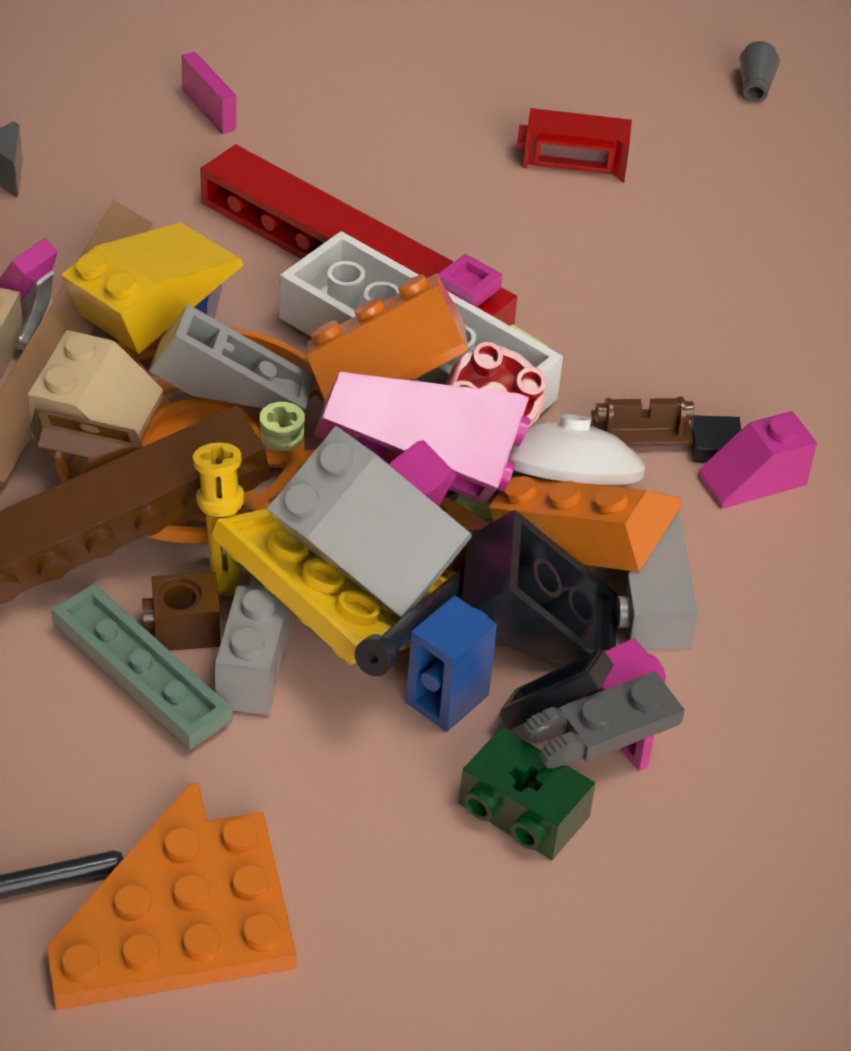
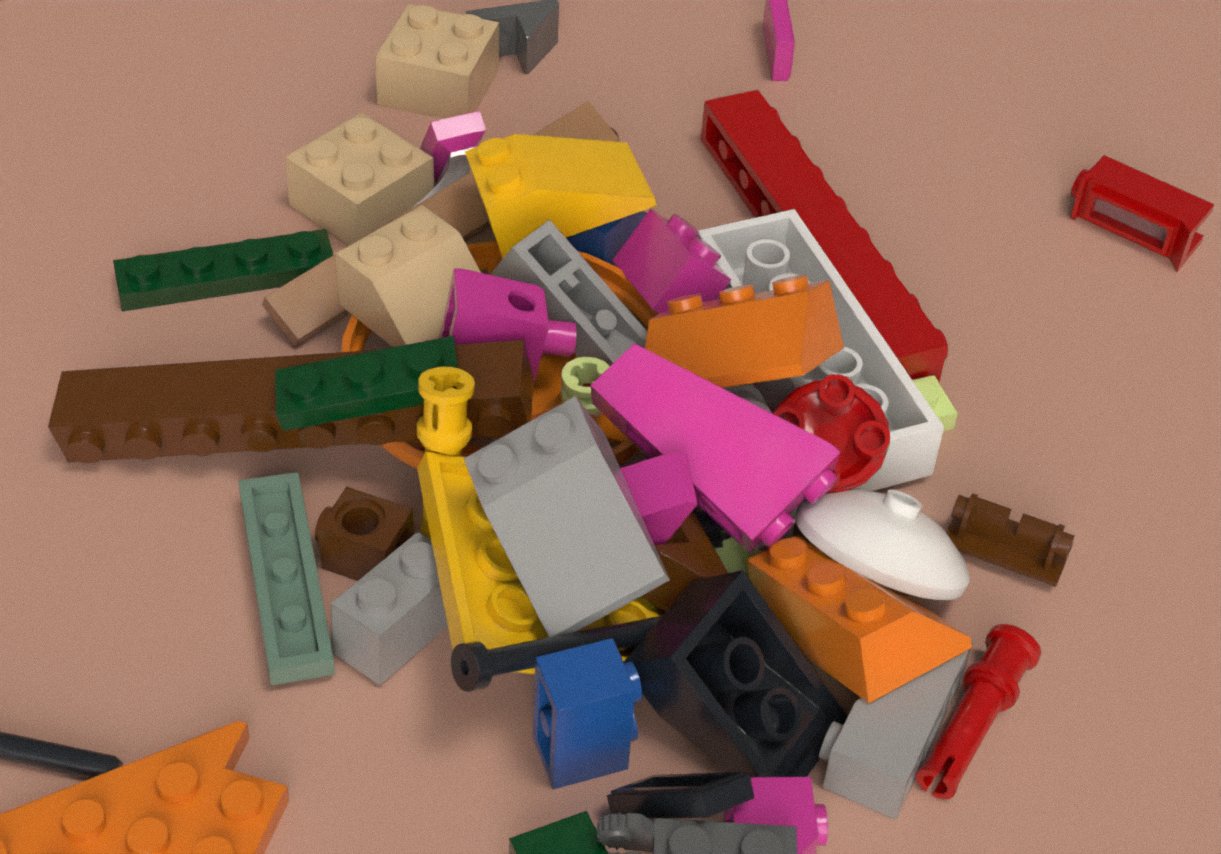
camera: 30 degrees right, 0 degrees up
(88, 440) = (357, 315): reddish brown slope -> none
(131, 486) = (358, 383): none -> dark green plate
(190, 393) = (504, 309): none -> dark pink torso
(275, 311) = (670, 261): none -> dark pink brick
(471, 280) = (896, 308): dark pink plate -> none
(701, 534) = (988, 689): none -> red pin
(712, 434) = (1089, 591): black tile -> none
(760, 461) = (1118, 637): dark pink slope -> none

